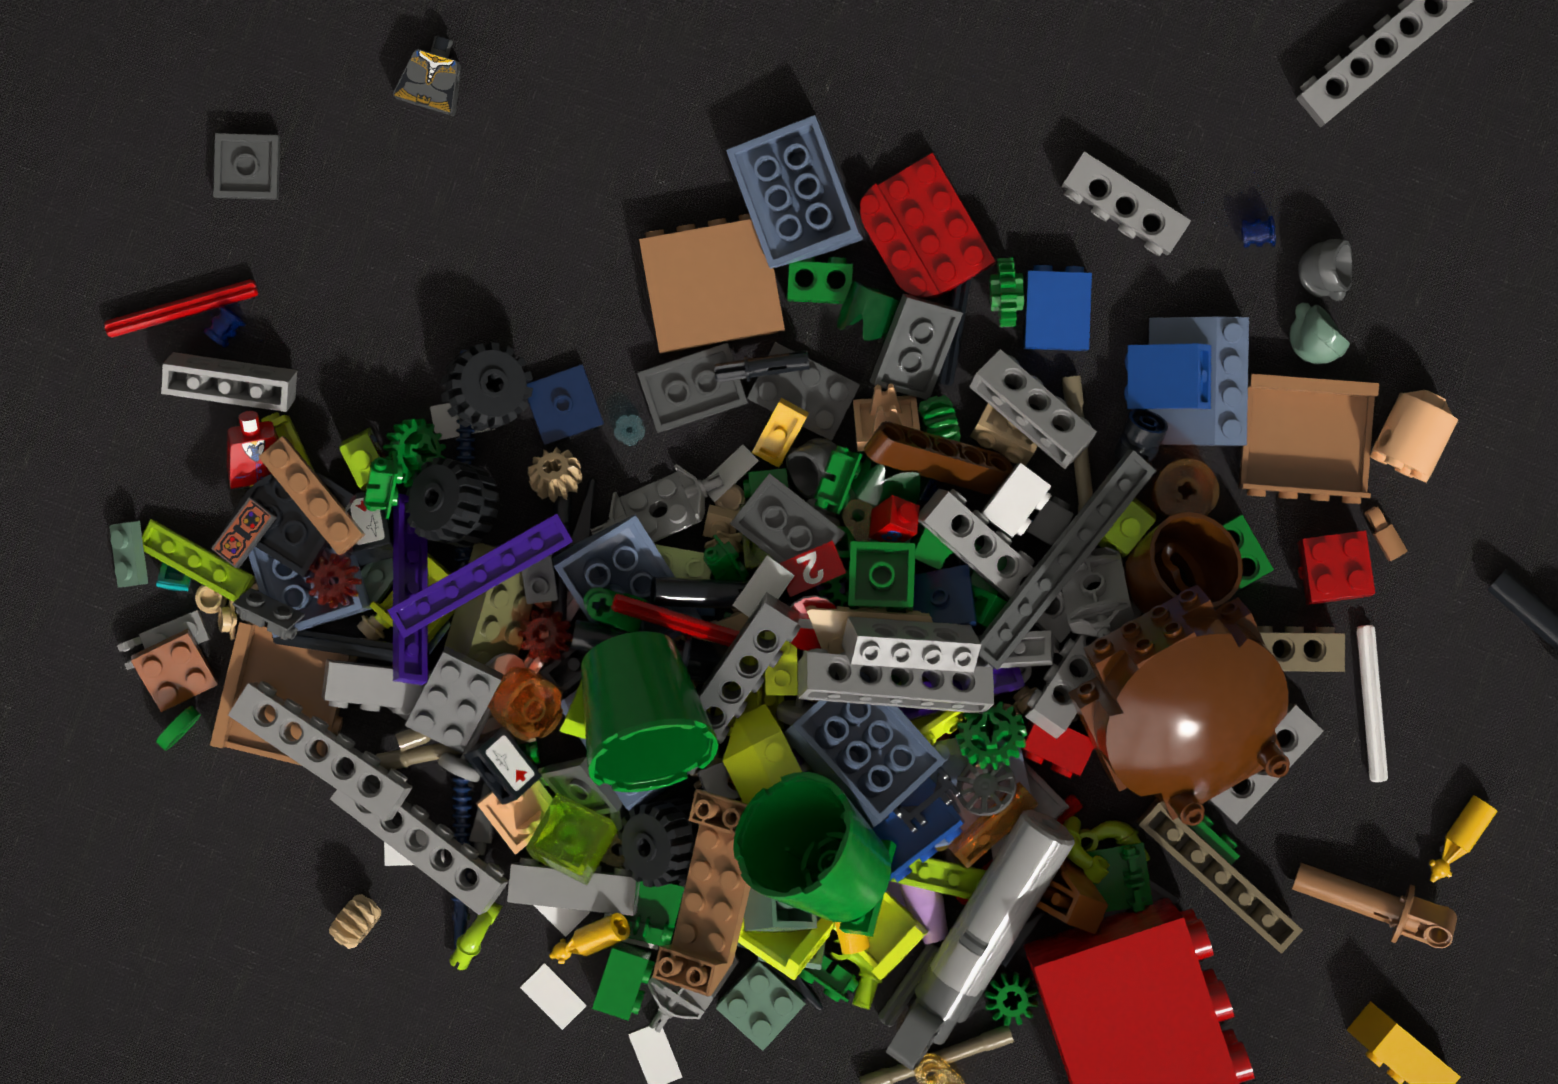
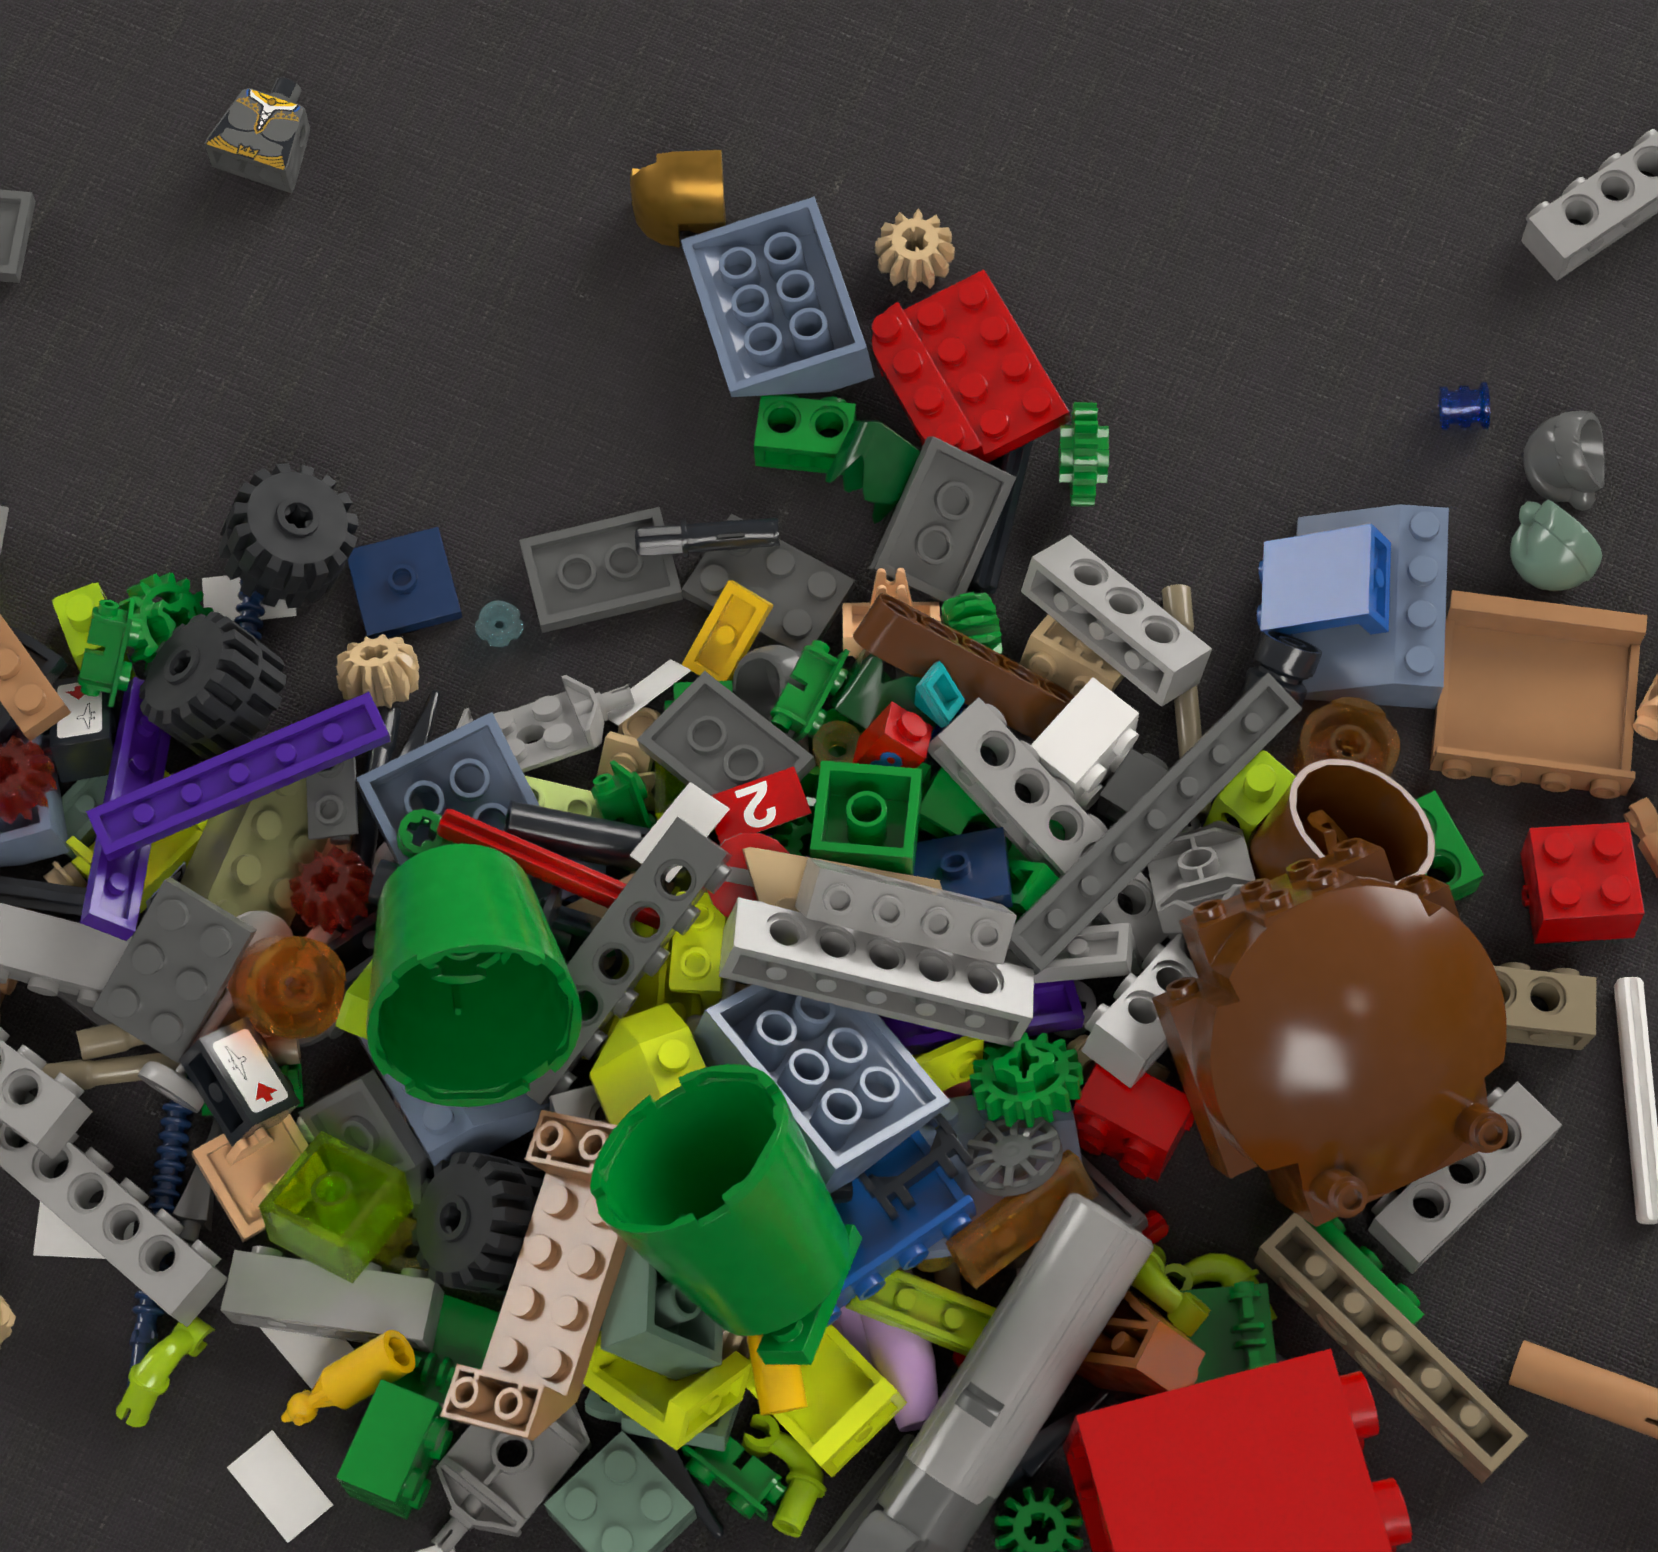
camera: 15 degrees right, 20 degrees down
(710, 285) = (641, 429): medium nougat panel -> none
(723, 115) = (679, 195): none -> pearl gold brick
(873, 140) = (898, 246): none -> tan gear
(922, 485) = (938, 695): none -> teal slope
(1058, 309) = (1159, 493): blue panel -> none
(1171, 222) = (1257, 333): light grey brick -> none

